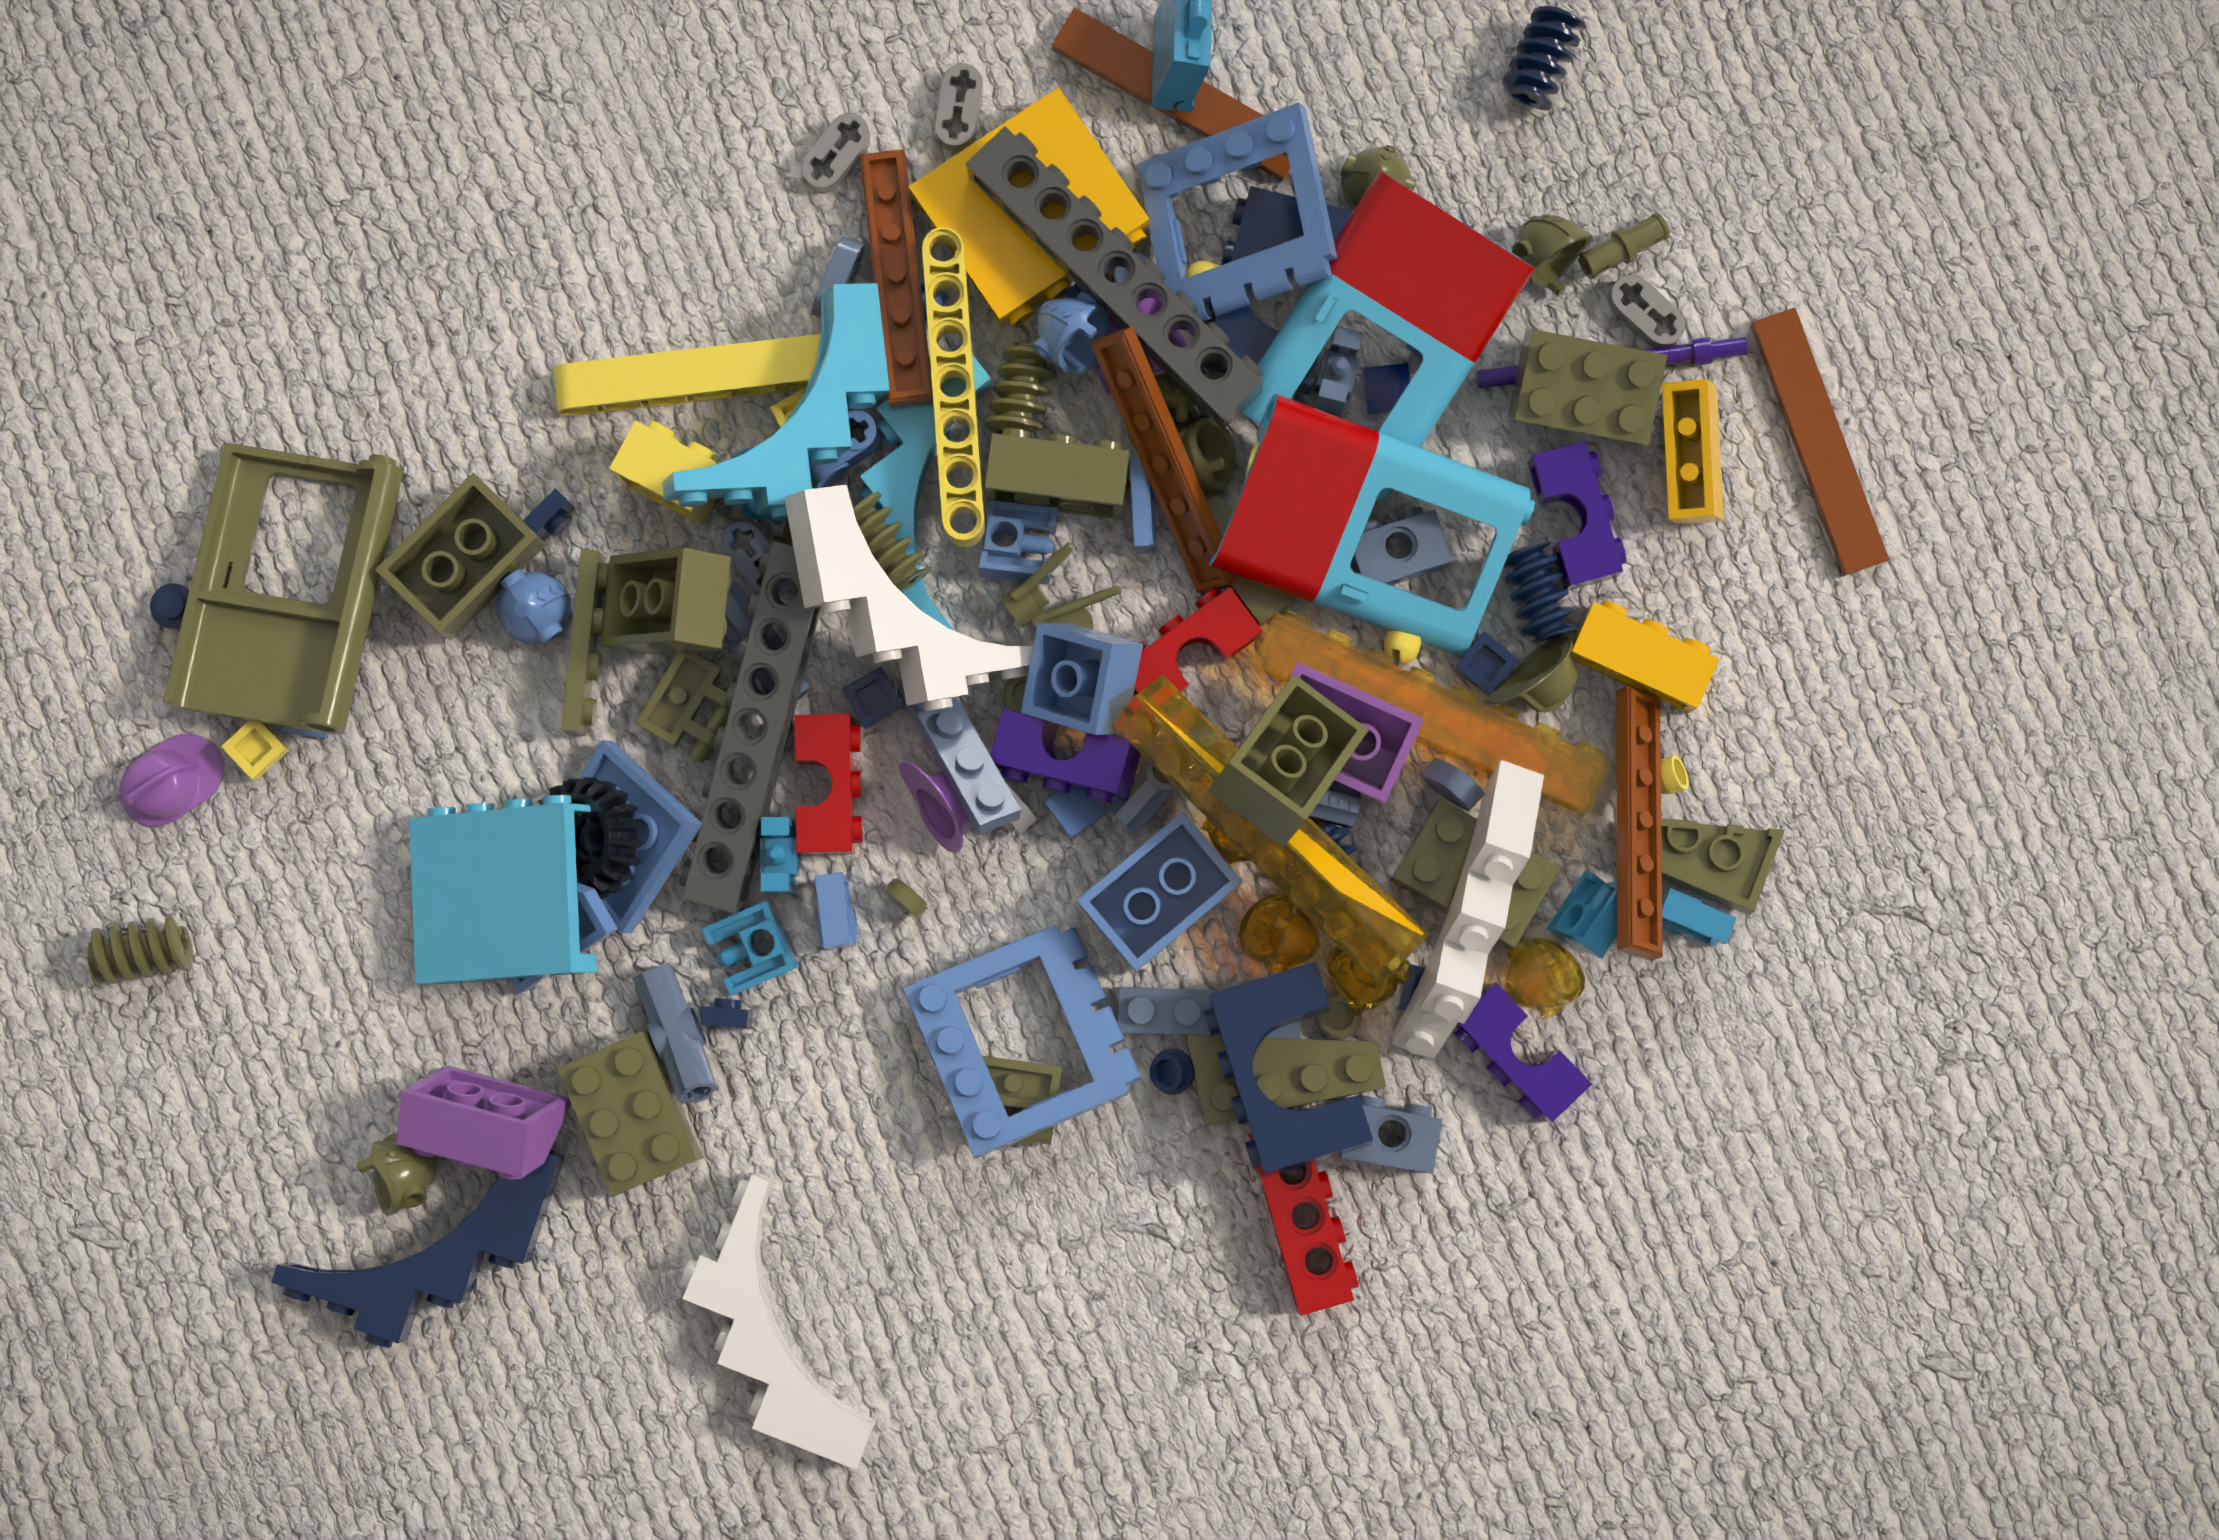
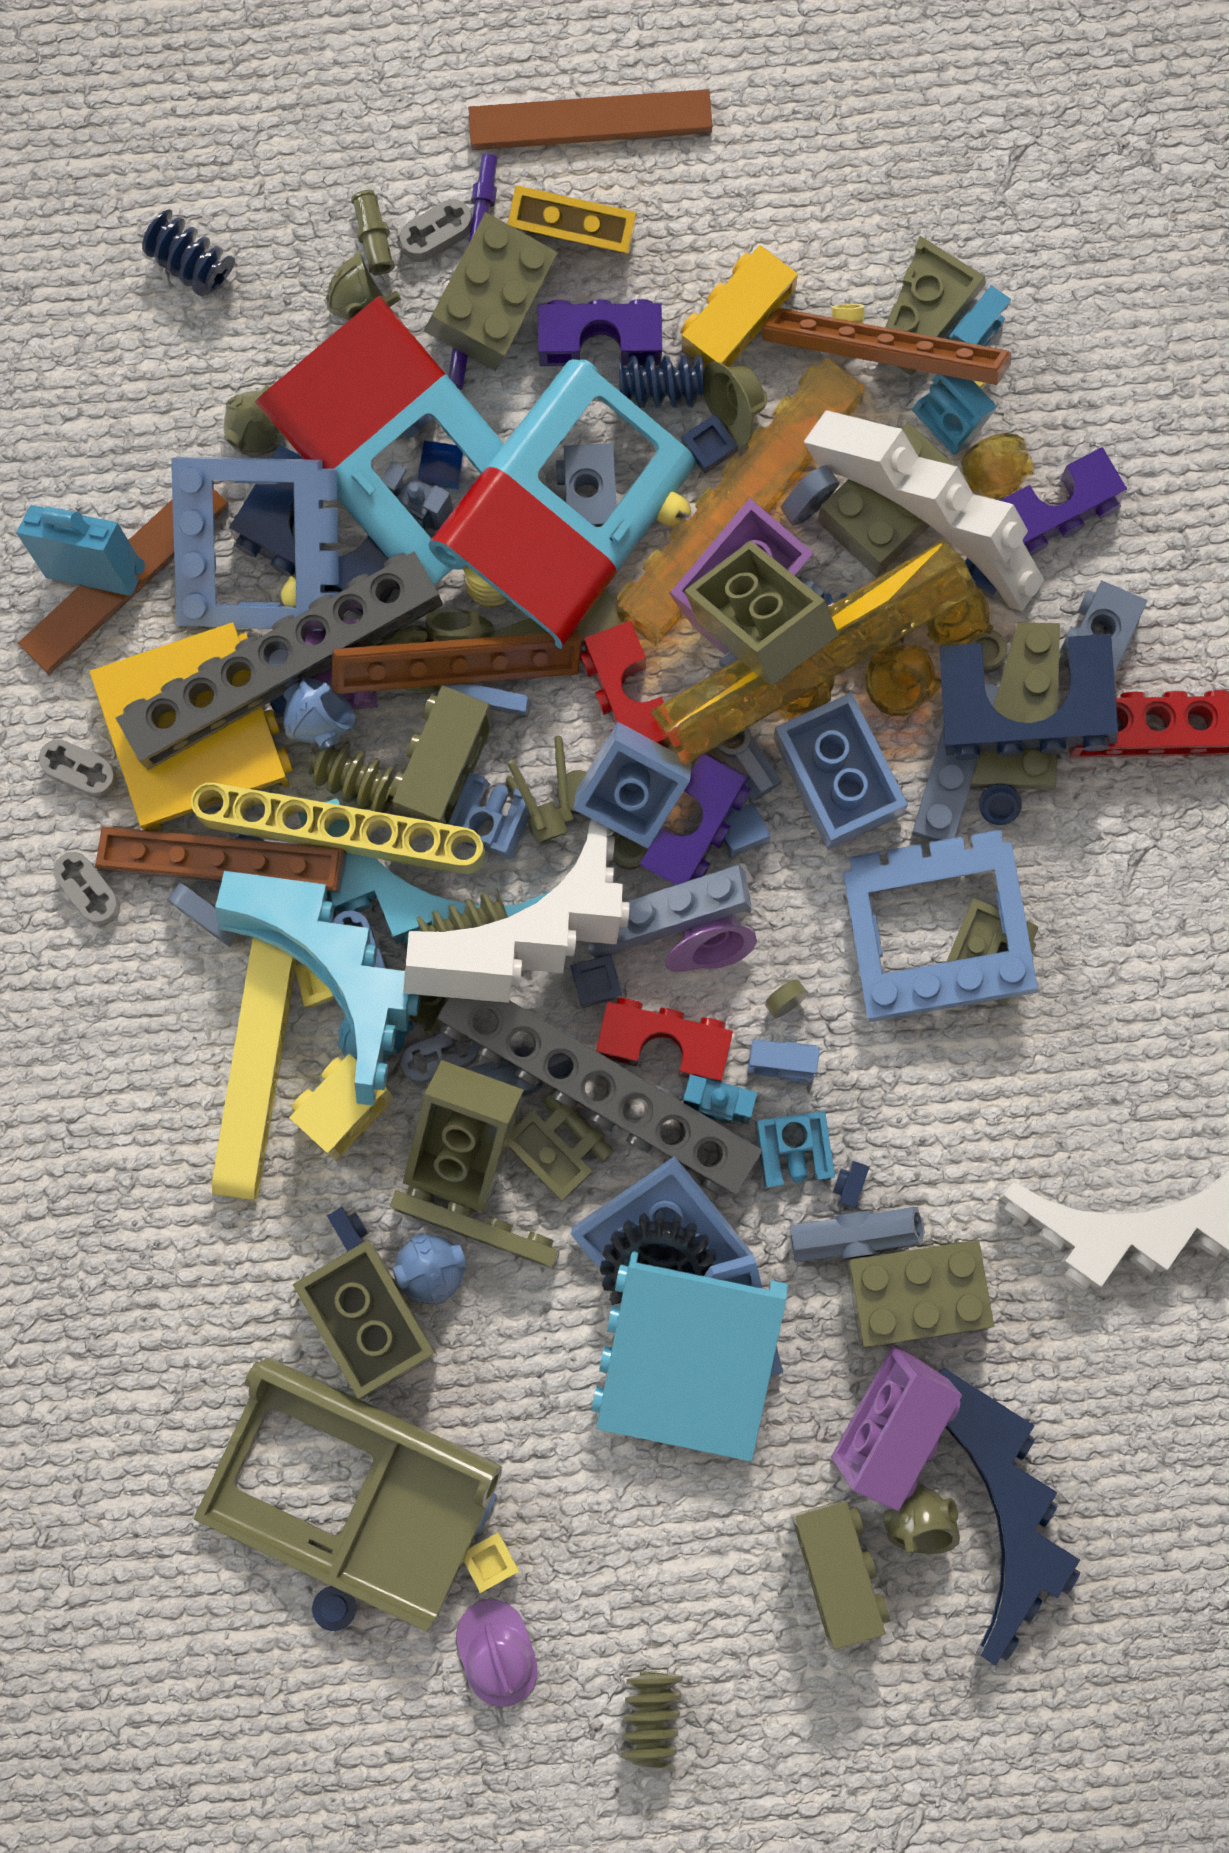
camera: 70 degrees left, 5 degrees down
(323, 1101) = (840, 1573): none -> olive brick

